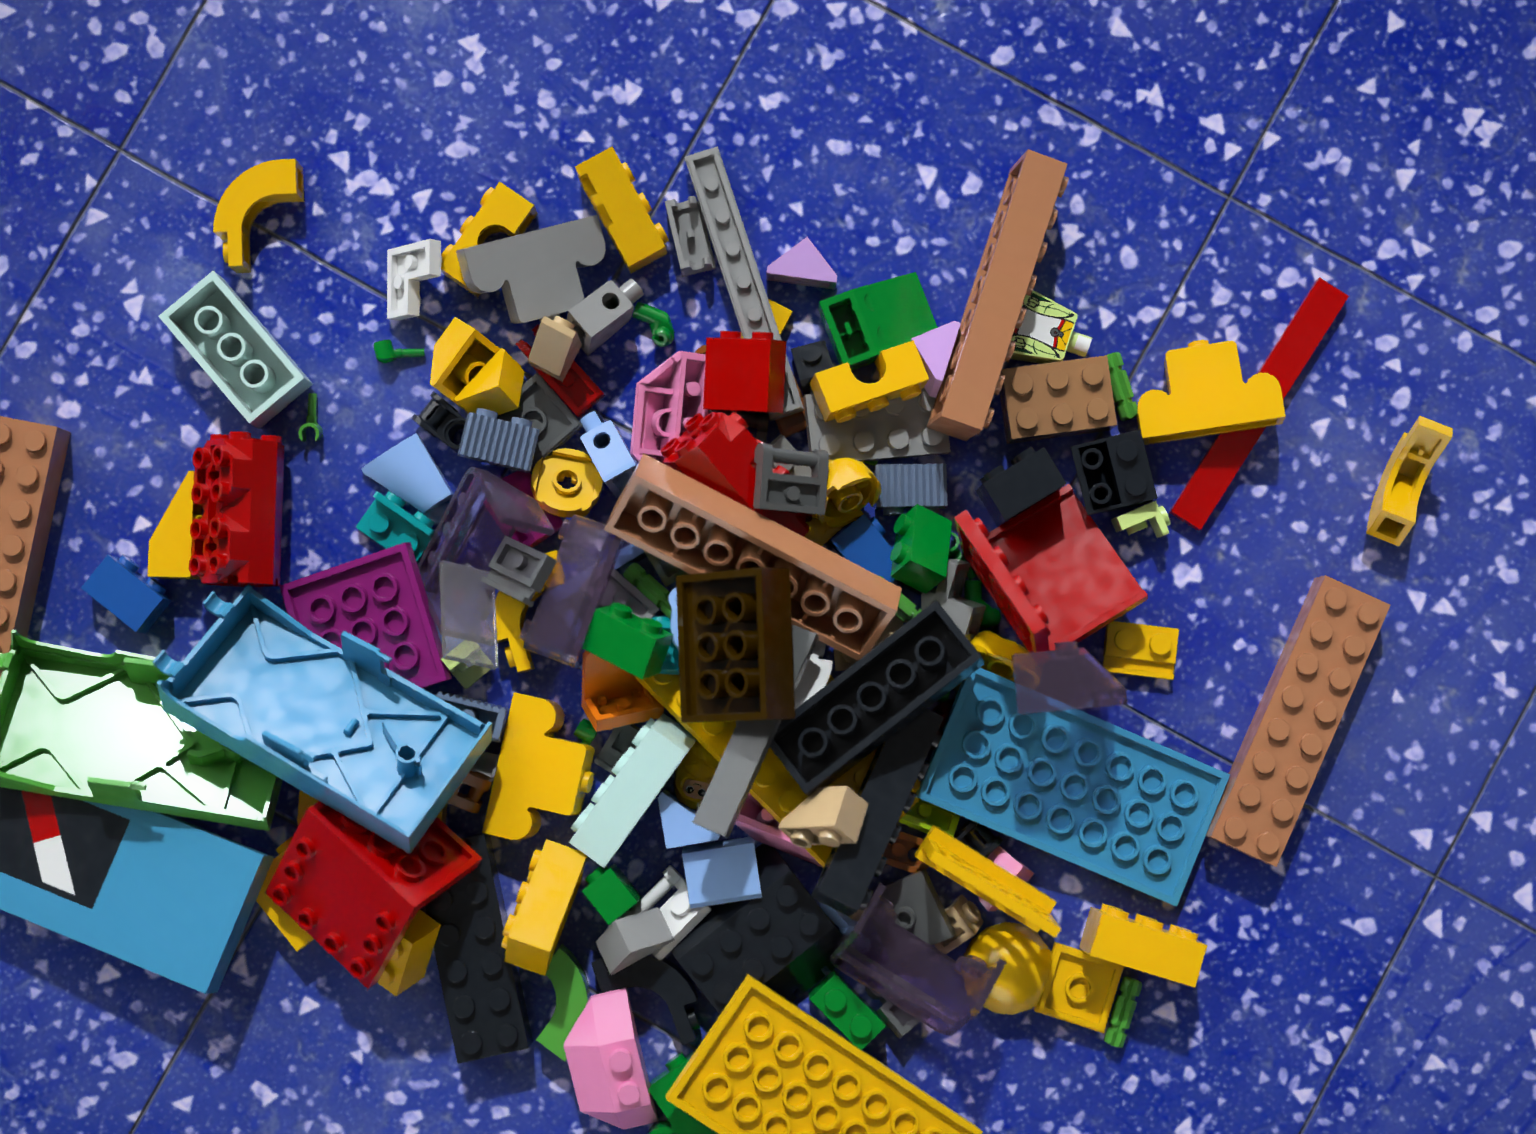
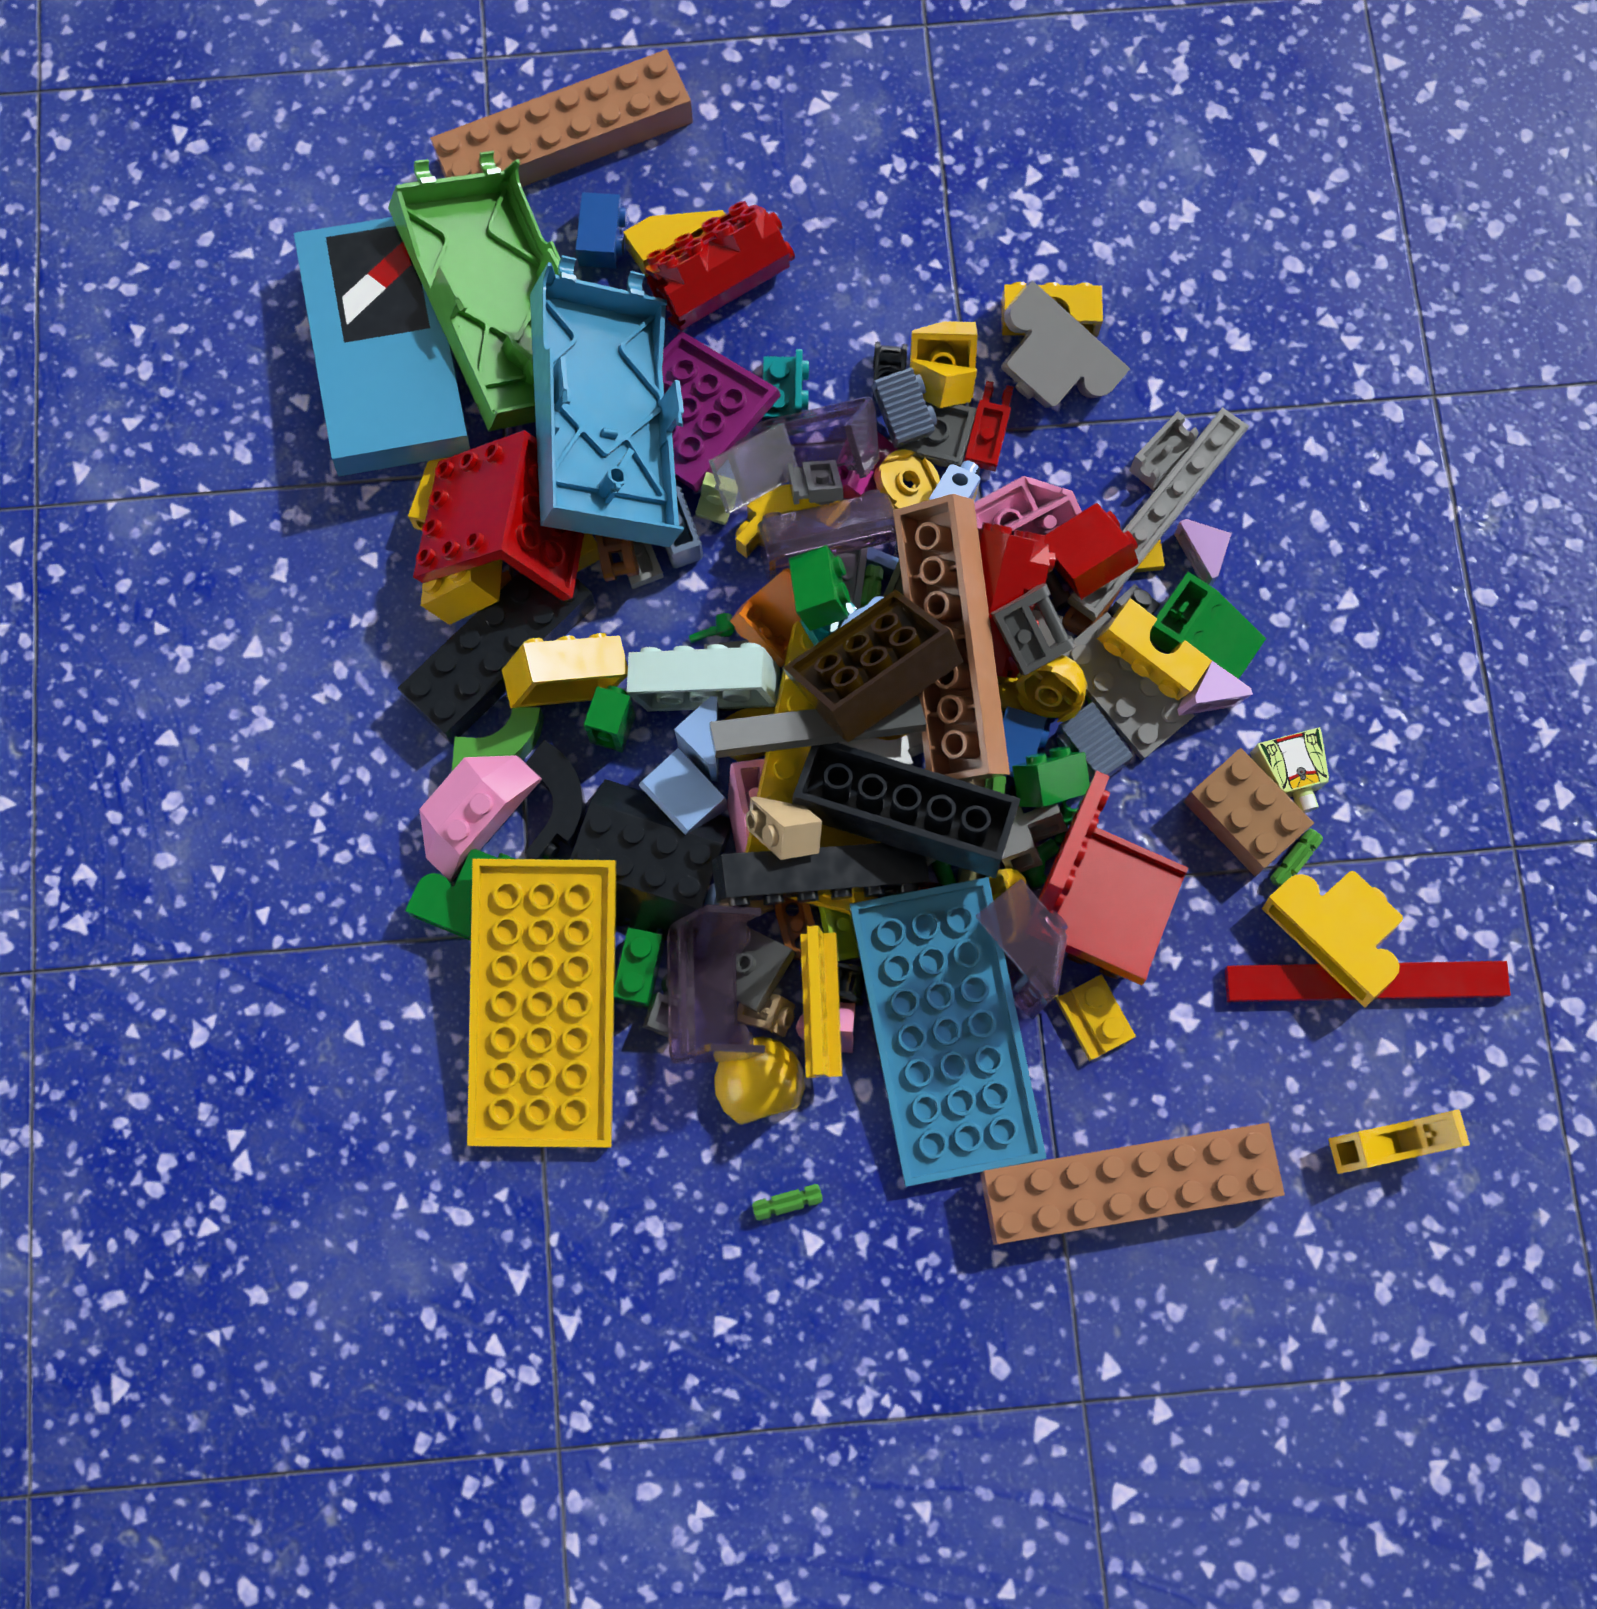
camera: 60 degrees right, 10 degrees down
(235, 350) = (836, 187): light aqua brick -> none
(249, 195) = (956, 127): yellow arch -> none
(311, 419) = (820, 277): bright green hand -> none
(385, 352) = (911, 296): green hand -> none
(405, 270) = (988, 266): white plate -> none
(411, 474) = (832, 369): light blue slope -> none
(536, 770) = (668, 601): yellow brick -> none
(555, 347) = (1006, 400): tan slope -> none
(603, 313) = (1056, 424): light grey torso -> none
(622, 209) = (1148, 386): yellow wedge -> none
(633, 939) = (586, 755): light grey slope -> none
(659, 323) = (1082, 471): green arm -> none
(676, 910) = (616, 781): white plate -> none
(998, 296) = (1296, 705): nougat brick -> none
(1020, 486) = (1159, 823): black brick -> none
(1079, 988) = (783, 1150): yellow plate -> none
(1114, 473) = (1223, 896): black slope -> none
(1135, 520) = (1200, 940): yellowish green bracket -> none
(1143, 944) = (855, 1173): yellow piece -> none

